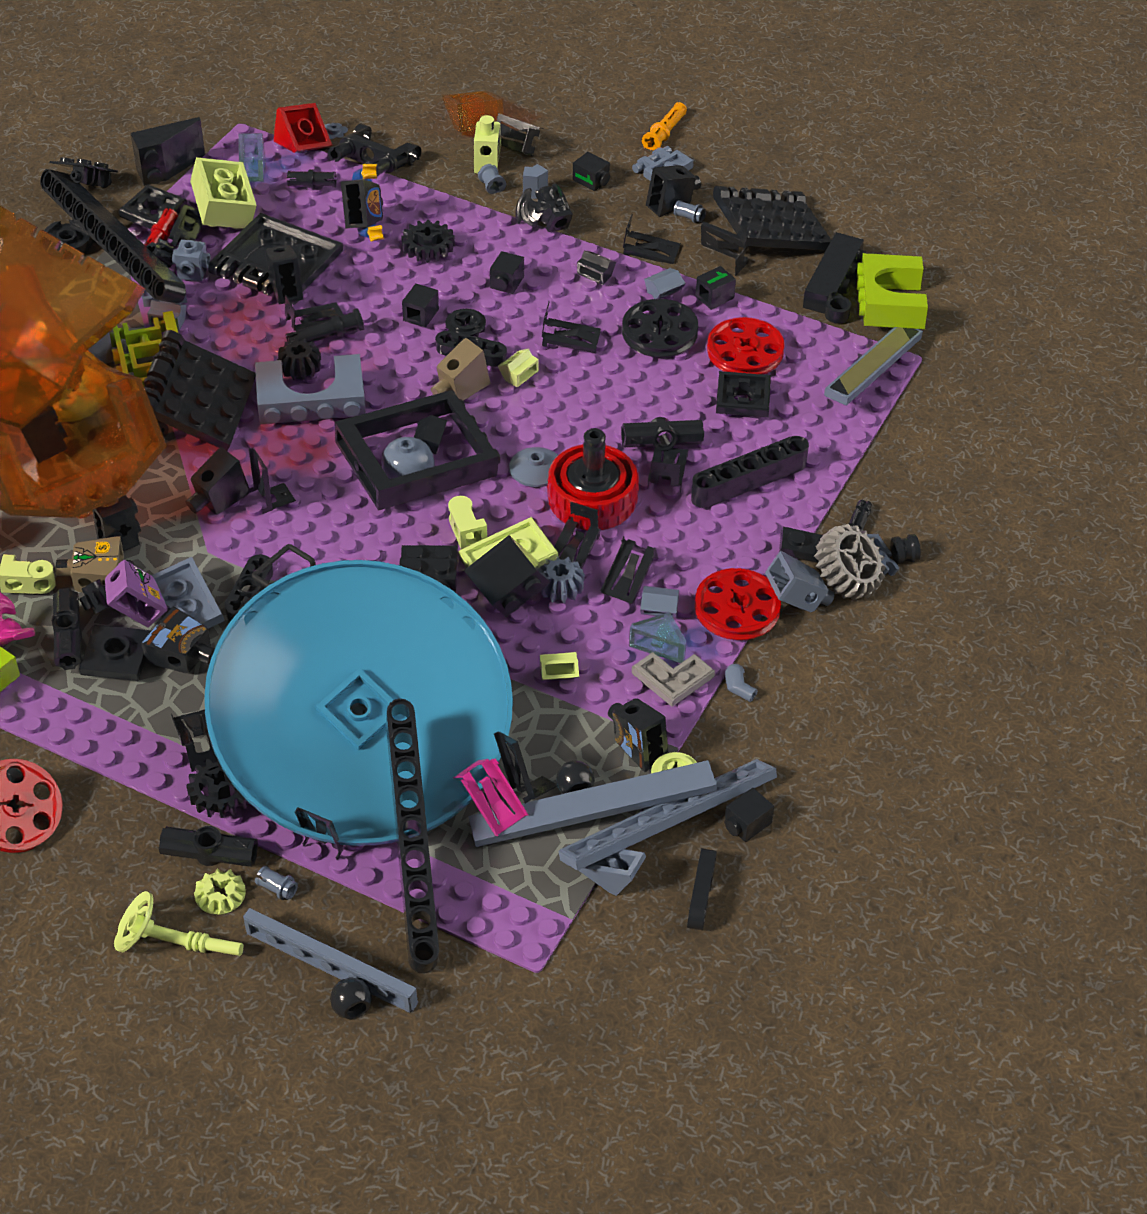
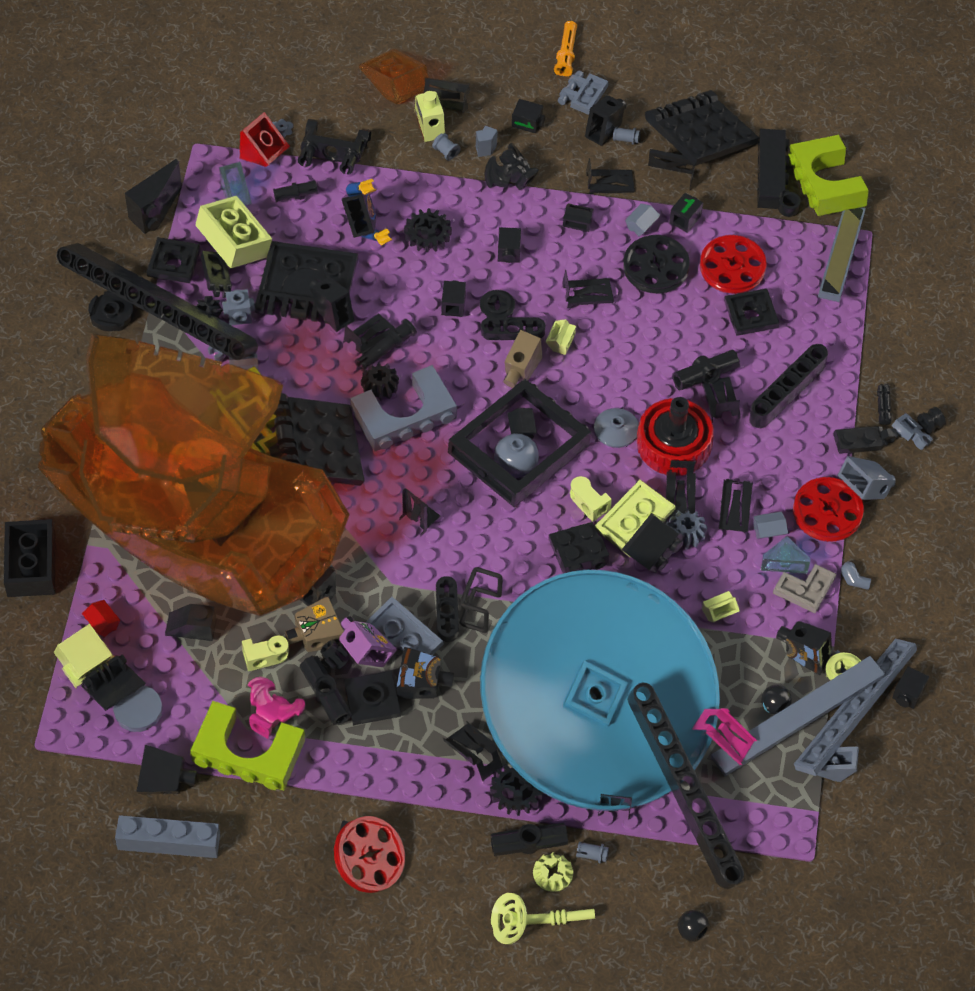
camera: 20 degrees left, 10 degrees up
(86, 173) = (97, 238): black hinge -> none
(162, 228) = (195, 282): red pin -> none
(218, 483) = (378, 523): black torso -> none
(329, 959) = (663, 900): sand blue tile -> none
(513, 773) = (749, 711): black piece -> none
(701, 889) = (902, 755): black beam -> none
(844, 565) = (899, 447): light grey gear -> none

